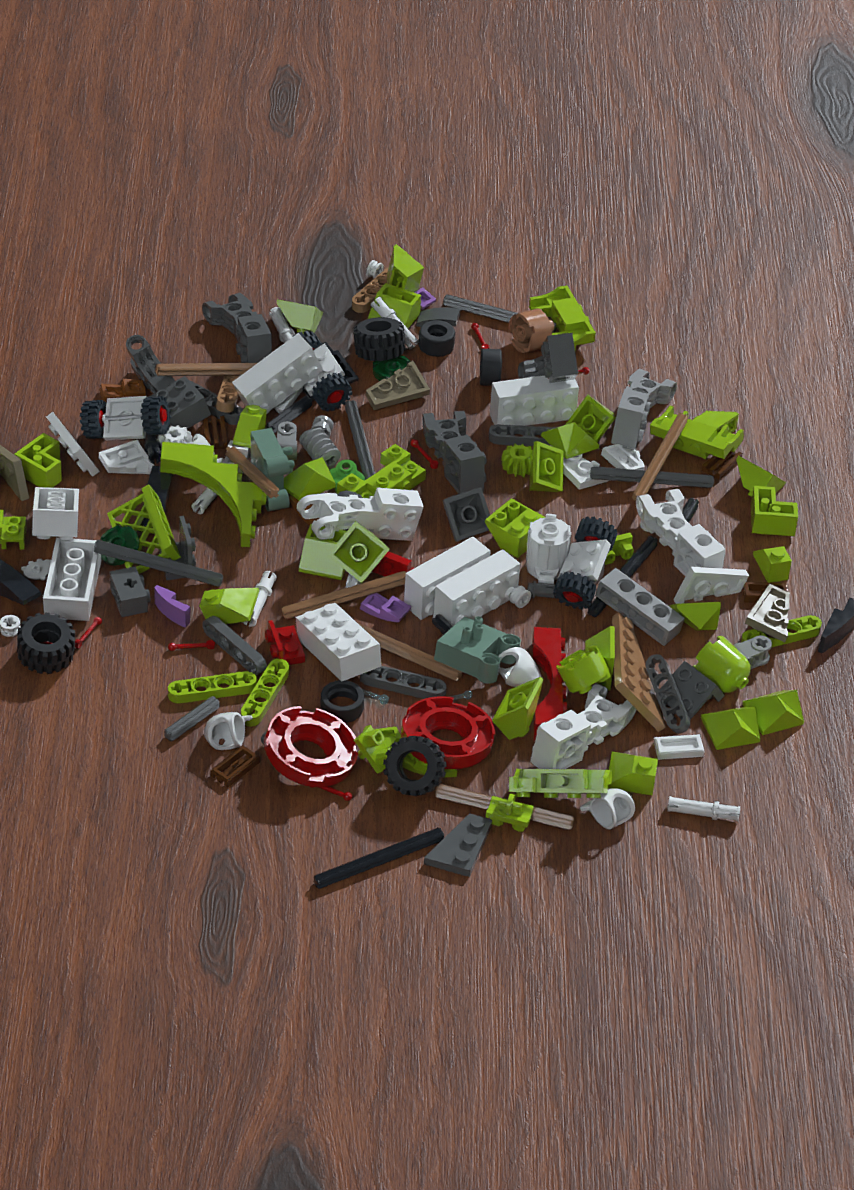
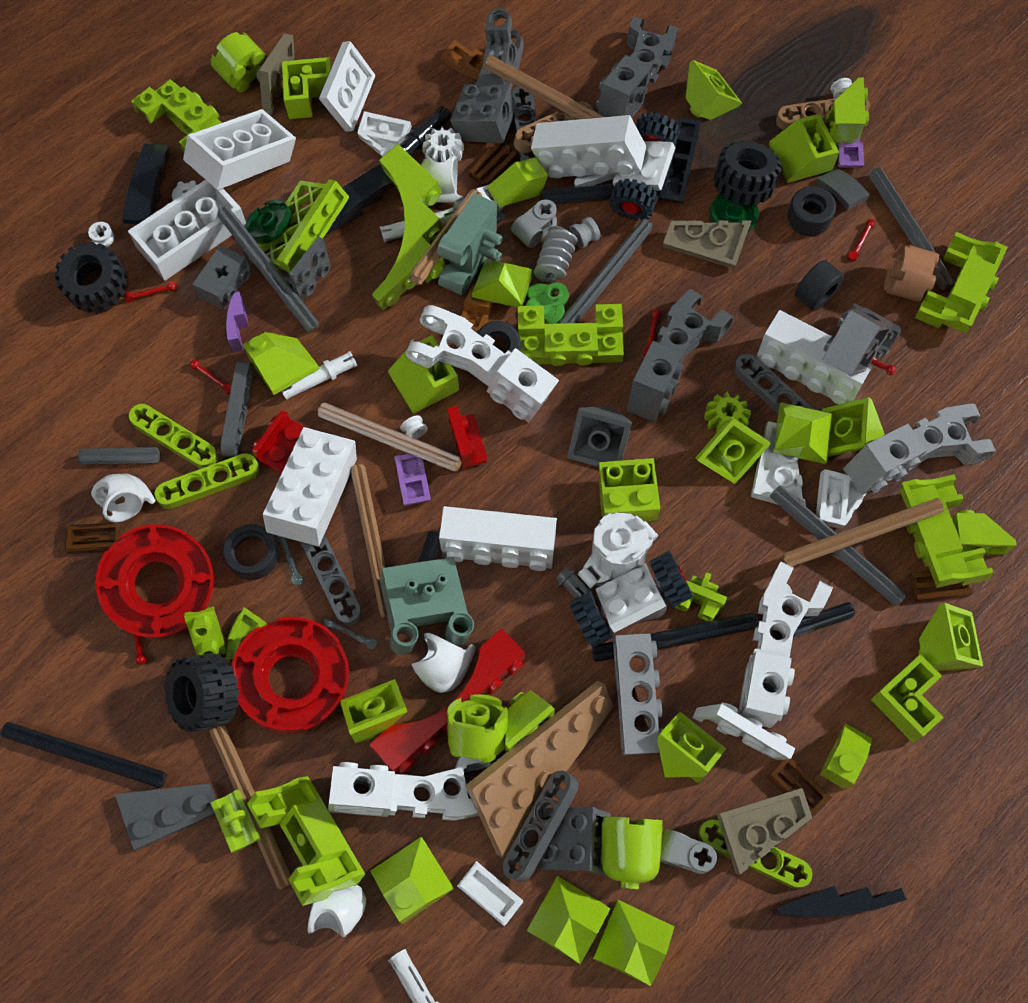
camera: 50 degrees right, 25 degrees up
(125, 417) = (414, 92): plate -> none
(281, 324) = (676, 103): white pin -> none
(358, 551) = (429, 404): lime slope -> none
(385, 311) = (785, 153): white pin -> none
(422, 580) = (487, 492): white brick -> none
(520, 596) = (543, 576): white bush -> none

